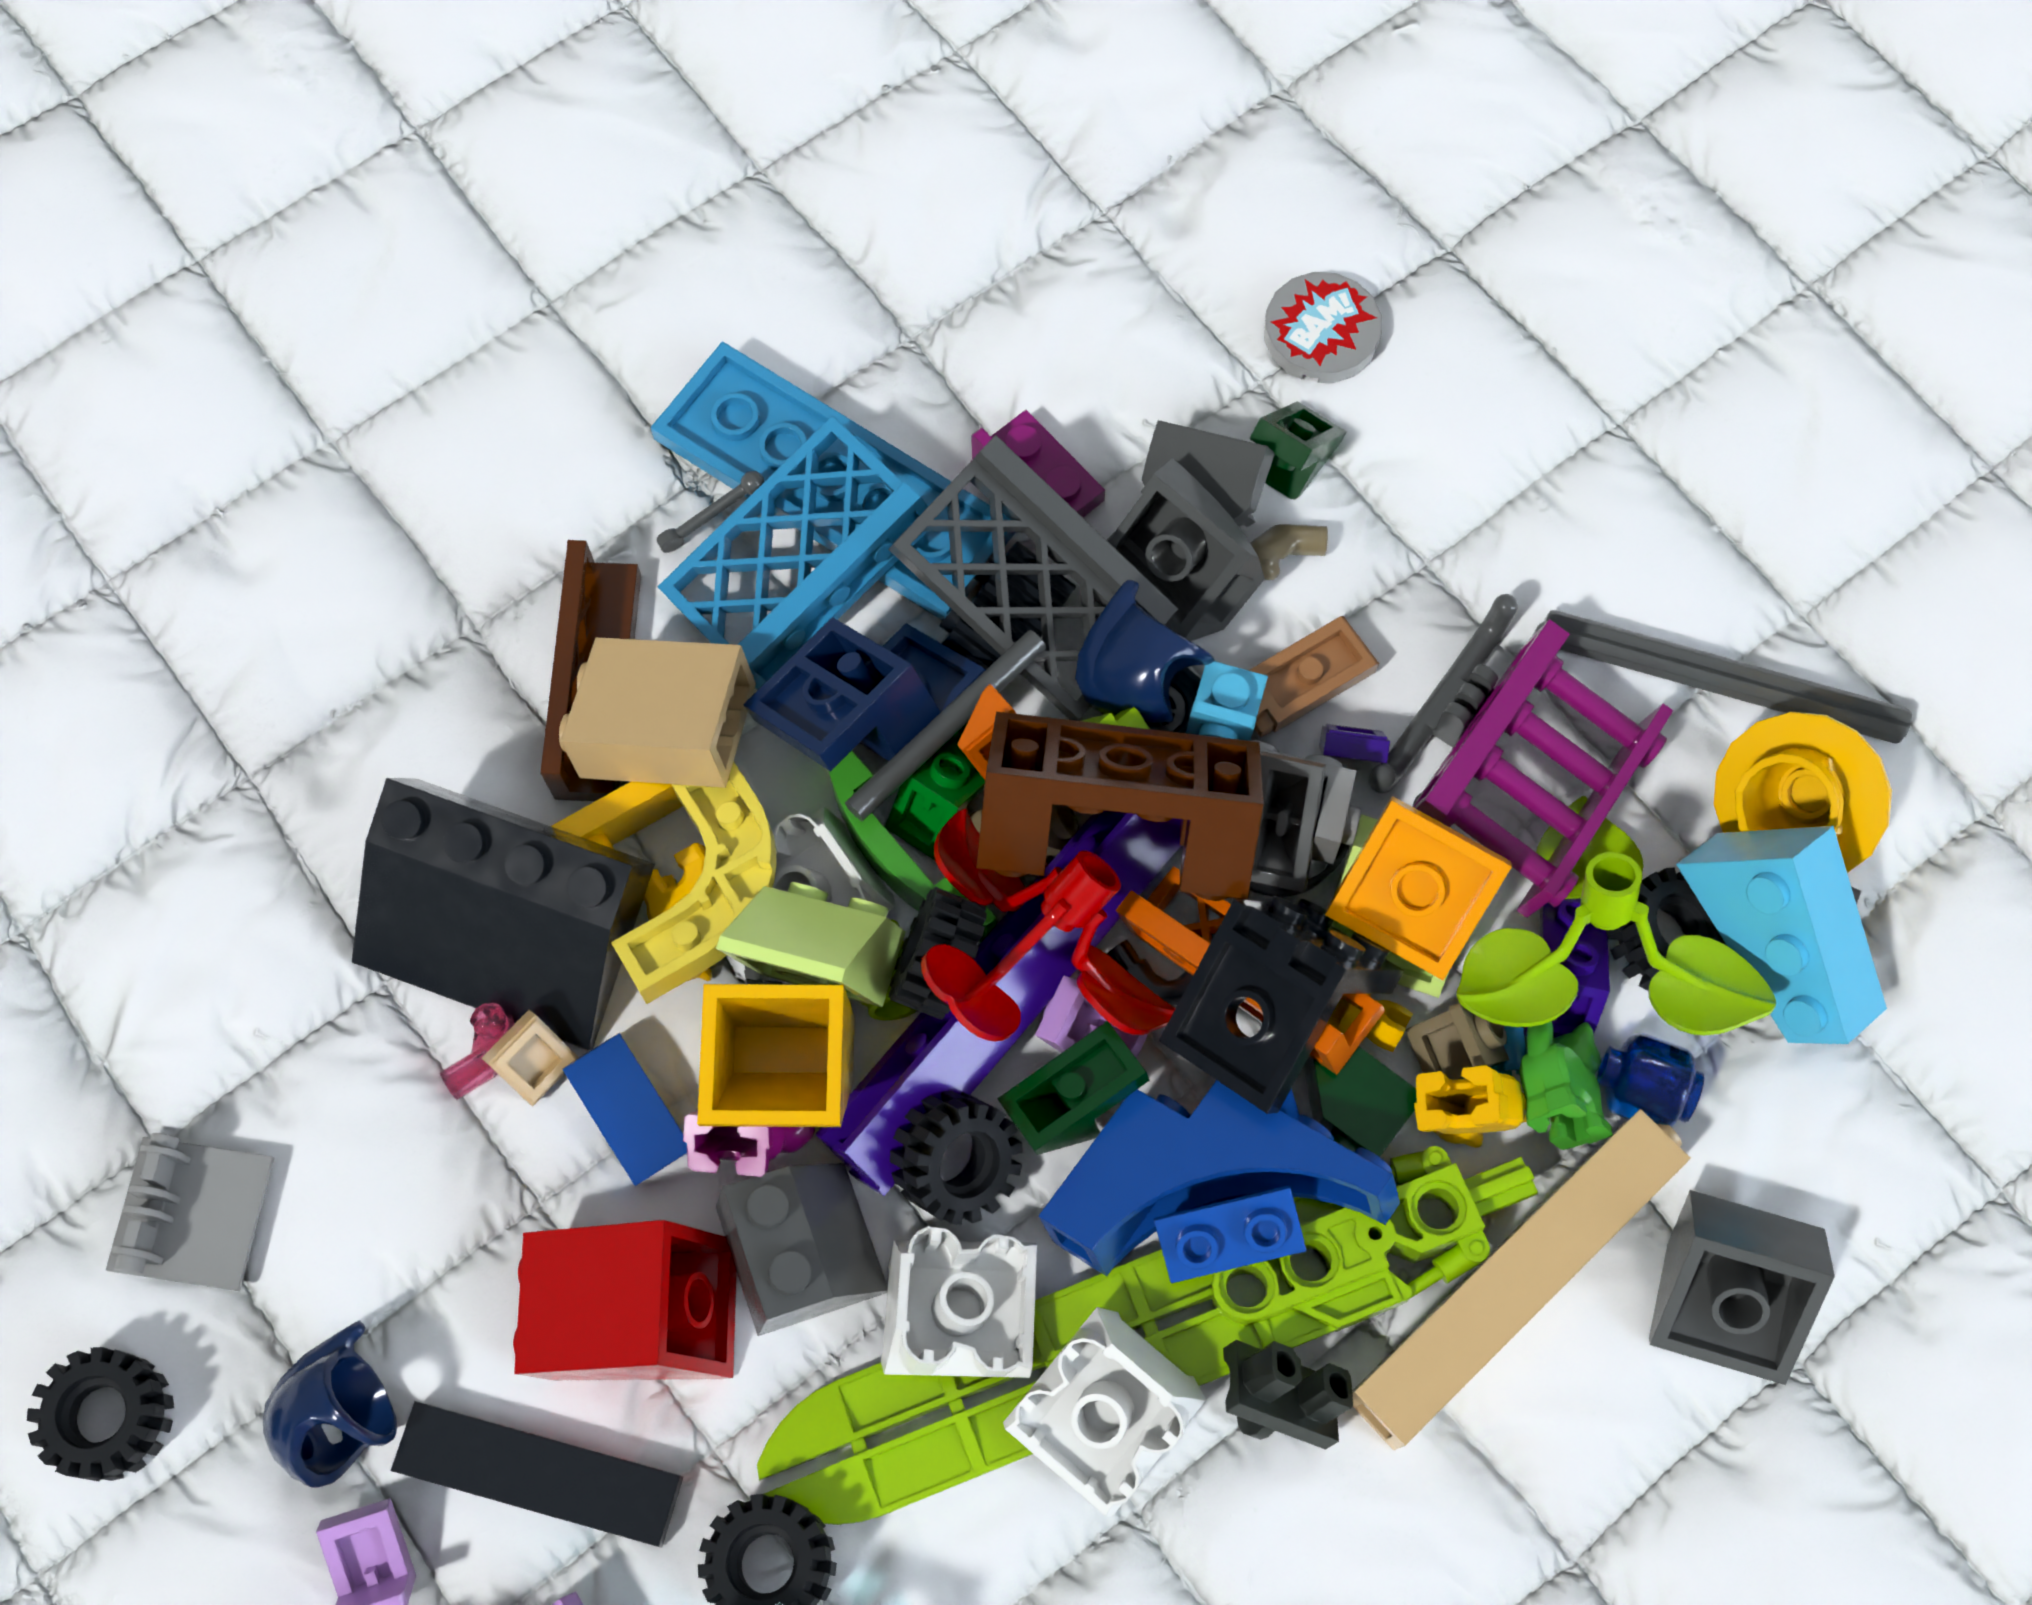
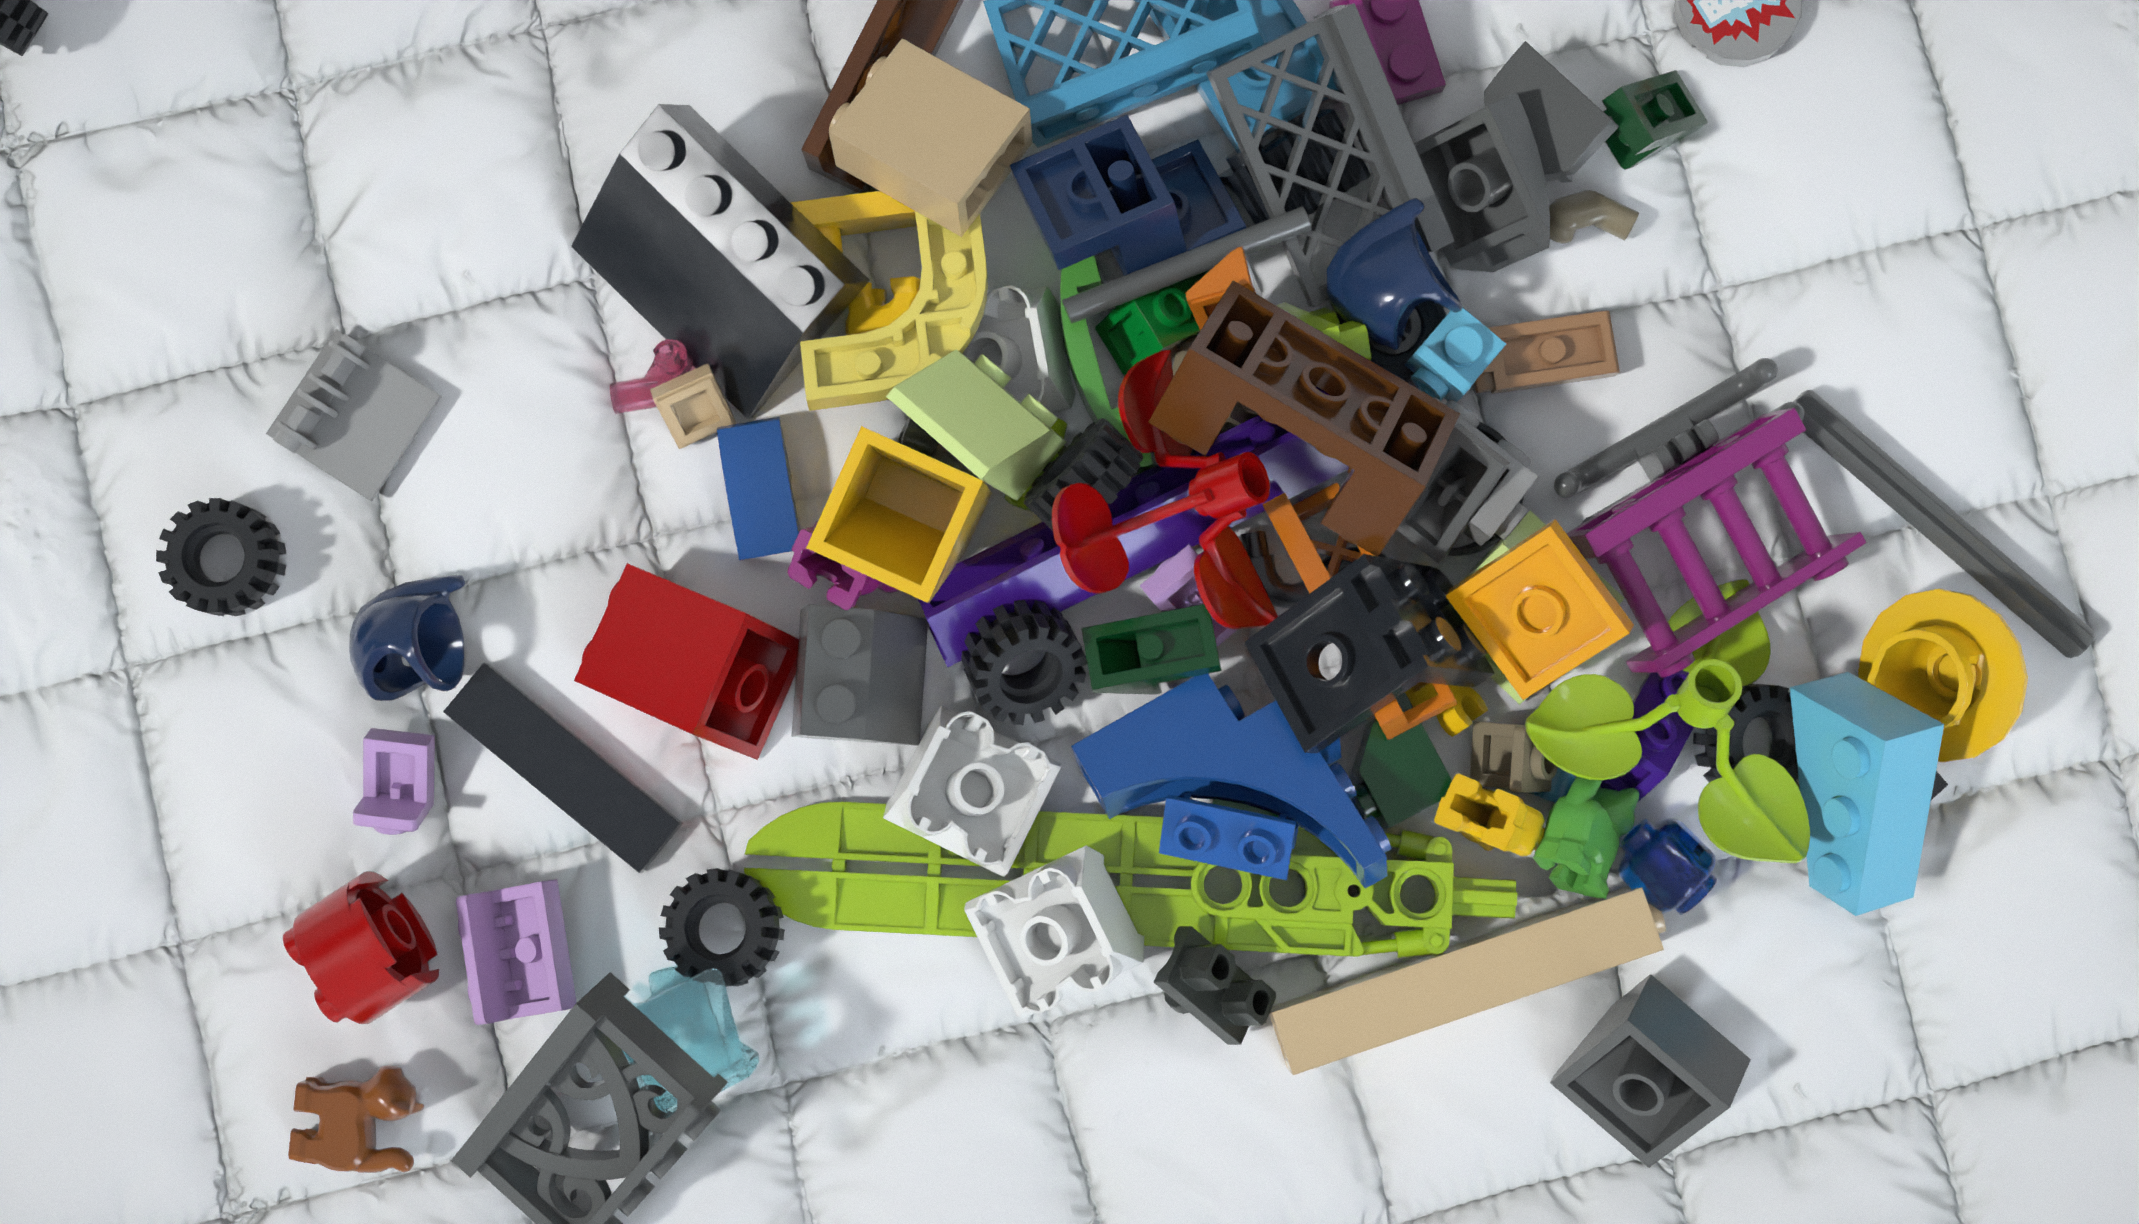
camera: 25 degrees right, 15 degrees up
(1354, 743) = (1558, 439): dark purple tile -> none

